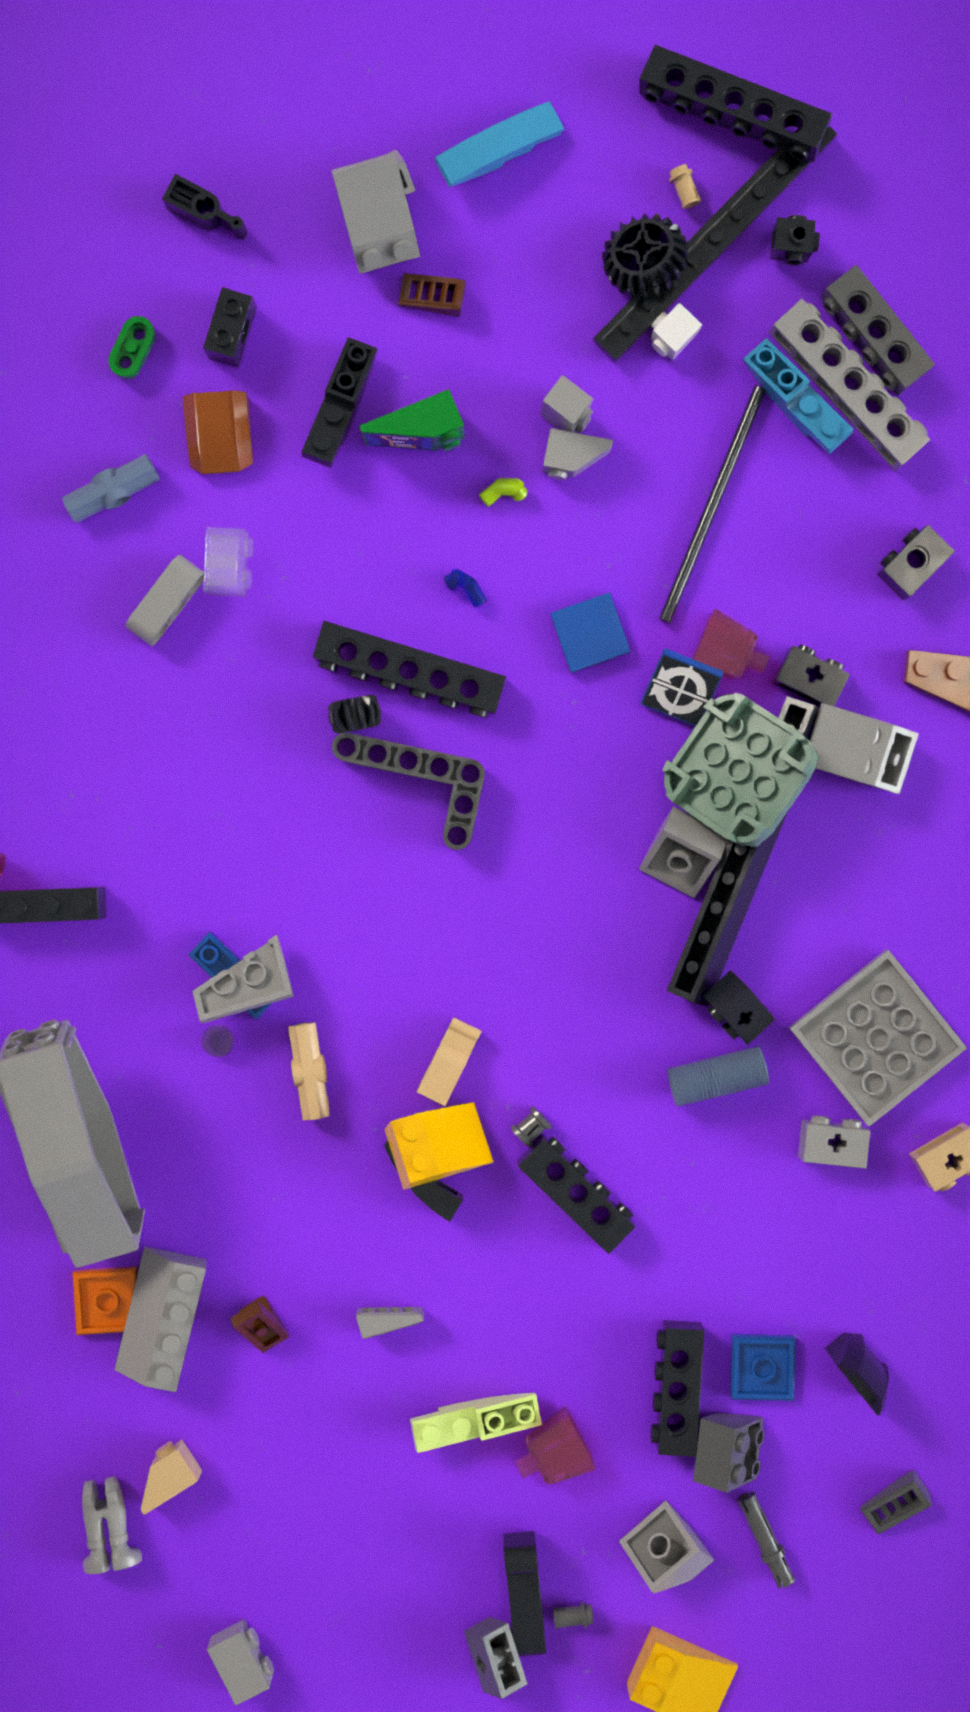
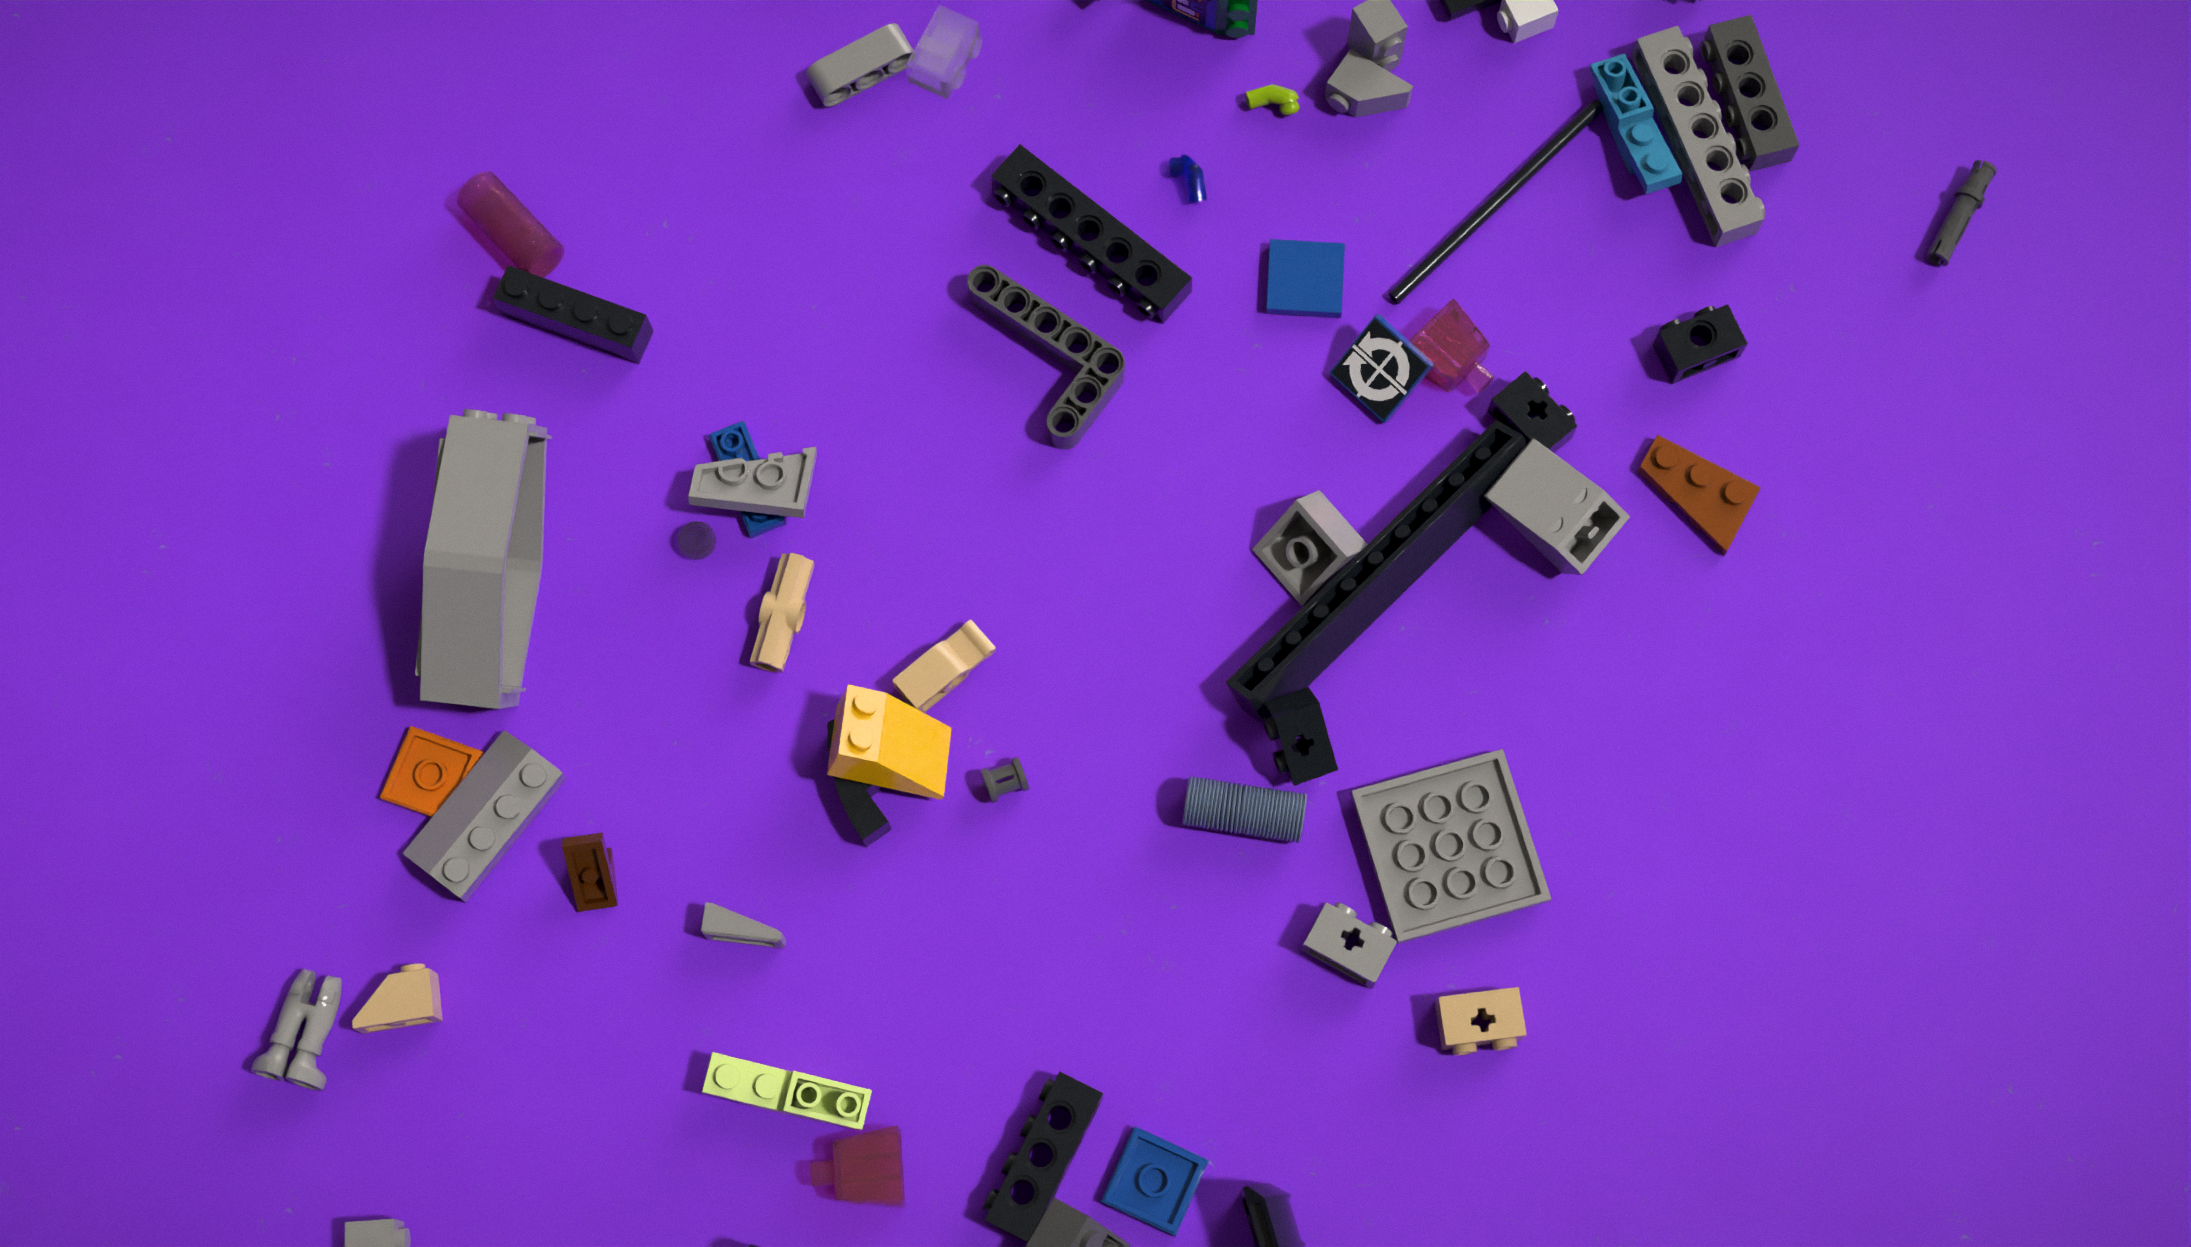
camera: 30 degrees right, 15 degrees down
(354, 714) = (1010, 252): black gear -> none
(606, 1232) = (1038, 936): black brick -> none
(740, 770) = (1410, 473): sand green plate -> none

